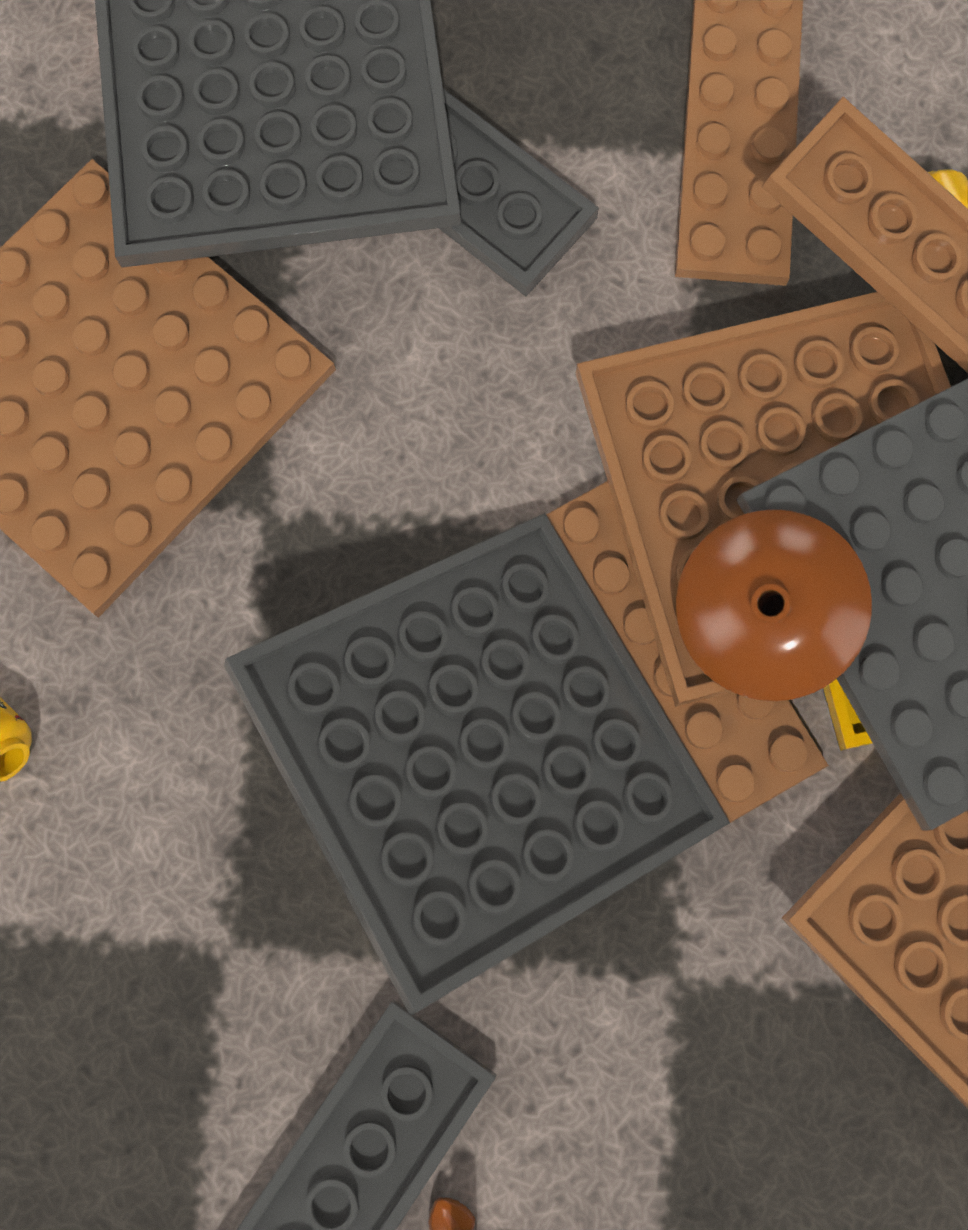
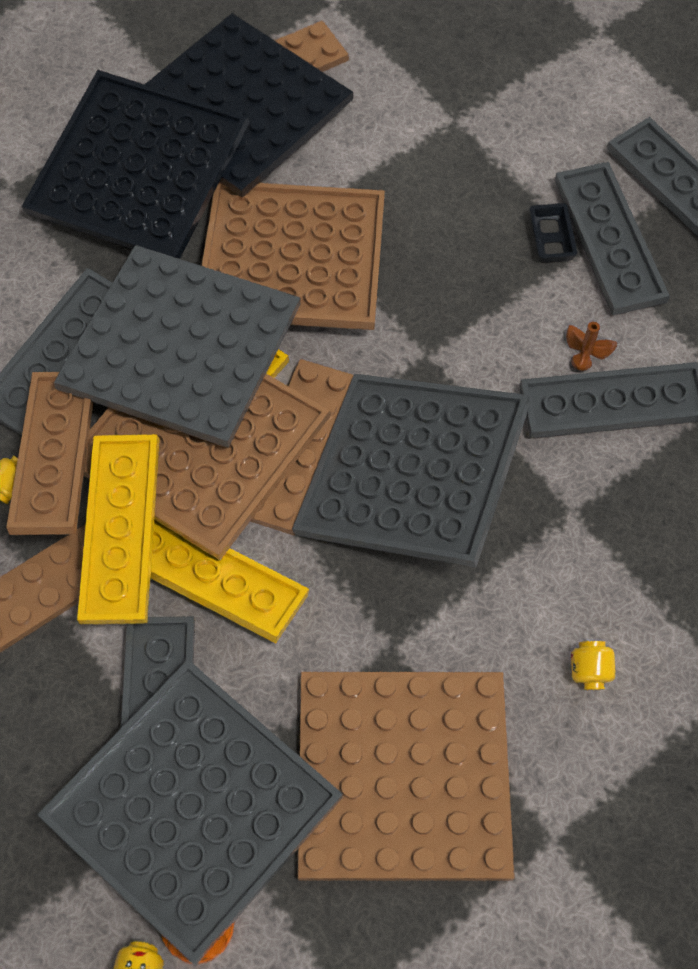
camera: 135 degrees left, 15 degrees down
(523, 365) = (229, 586): none -> yellow plate
(733, 265) = (119, 530): none -> yellow plate
(822, 614) = (258, 412): dark orange dish -> none

